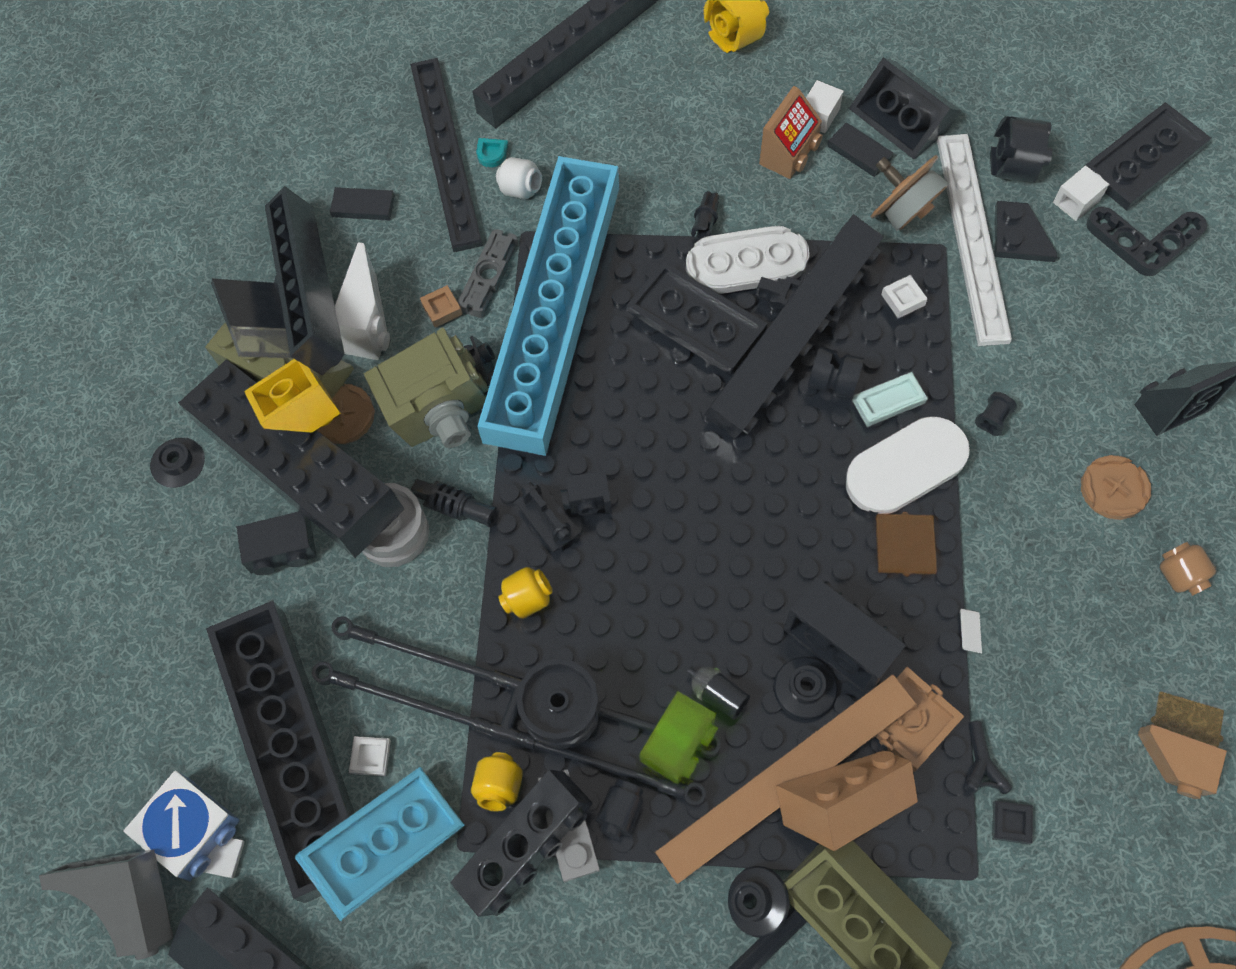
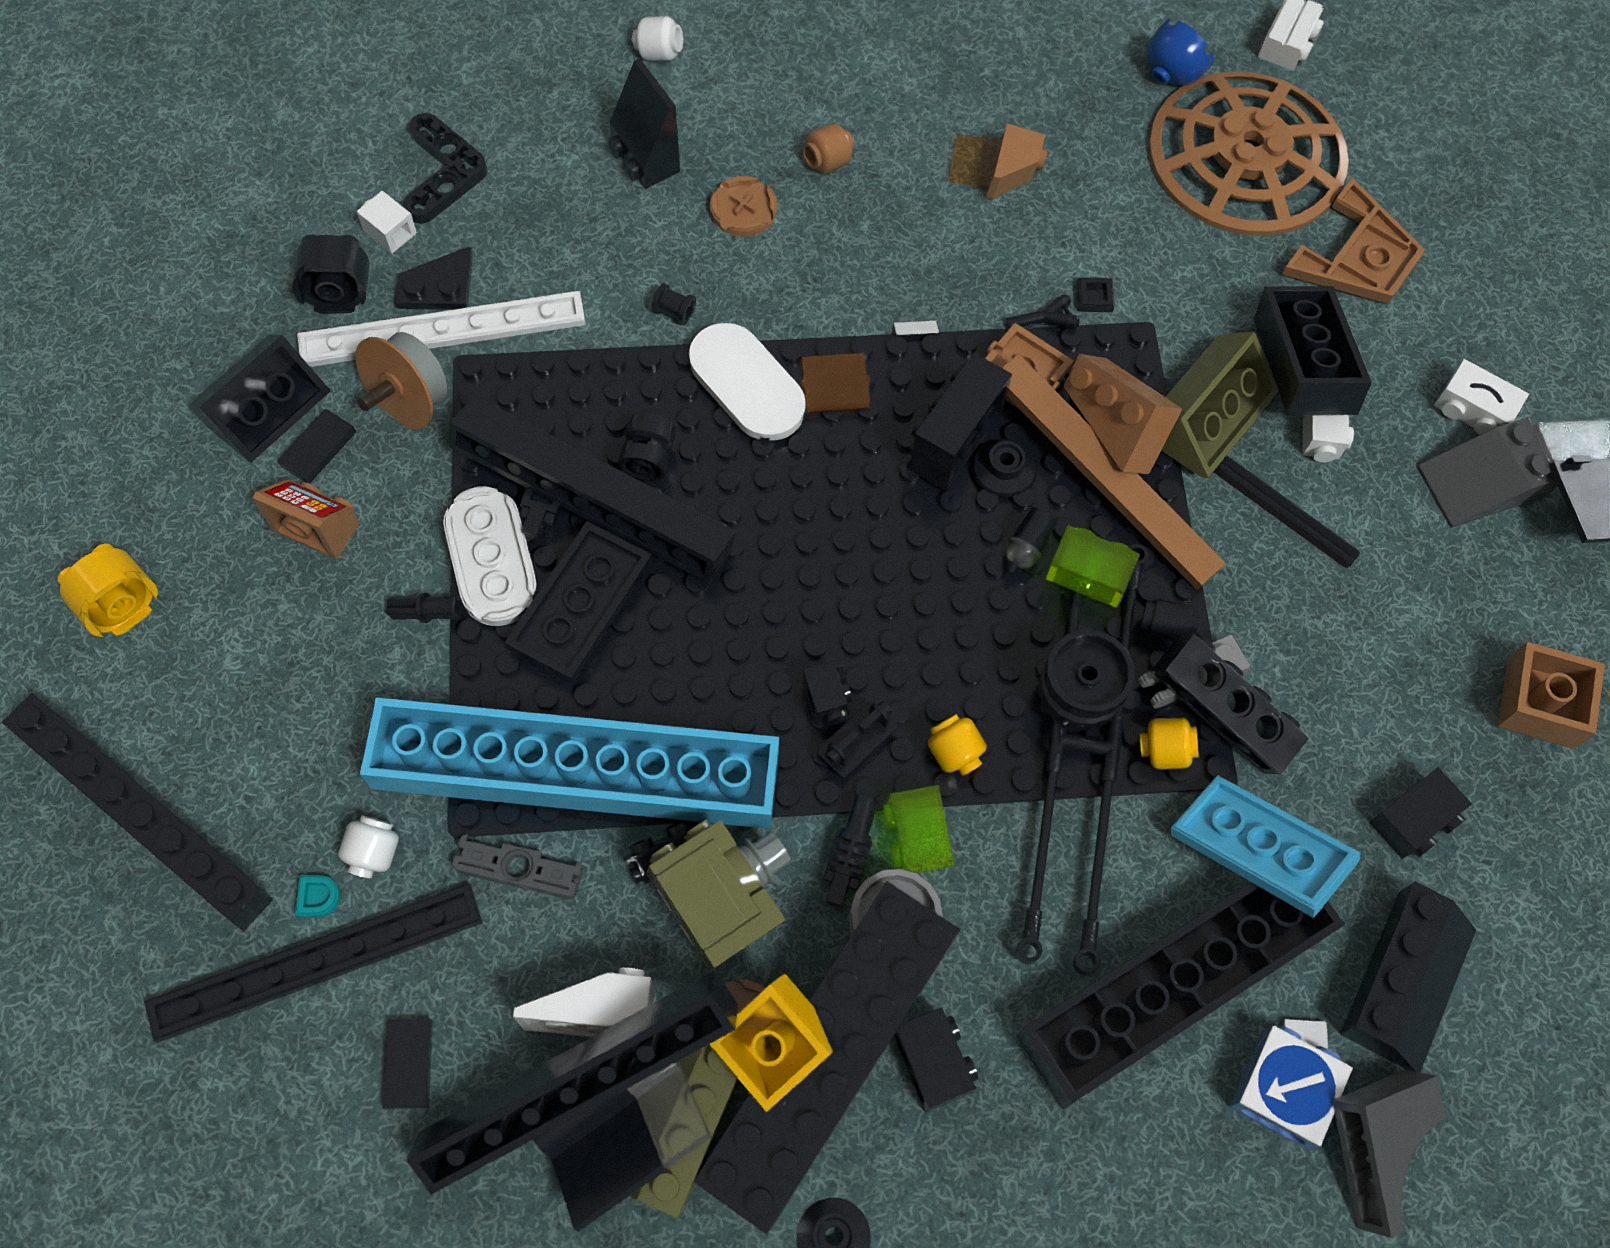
camera: 105 degrees left, 0 degrees up
(370, 756) = (1162, 897): white tile -> none
(441, 306) = (574, 918): medium nougat plate -> none
(458, 554) = (918, 830): none -> clear neon green brick
(771, 904) = (1207, 490): black piece -> none
(826, 102) = (247, 479): white brick -> none
(889, 399) = (668, 398): light aqua tile -> none
(904, 296) = (538, 386): white plate -> none
(1148, 154) = (330, 161): black plate -> none

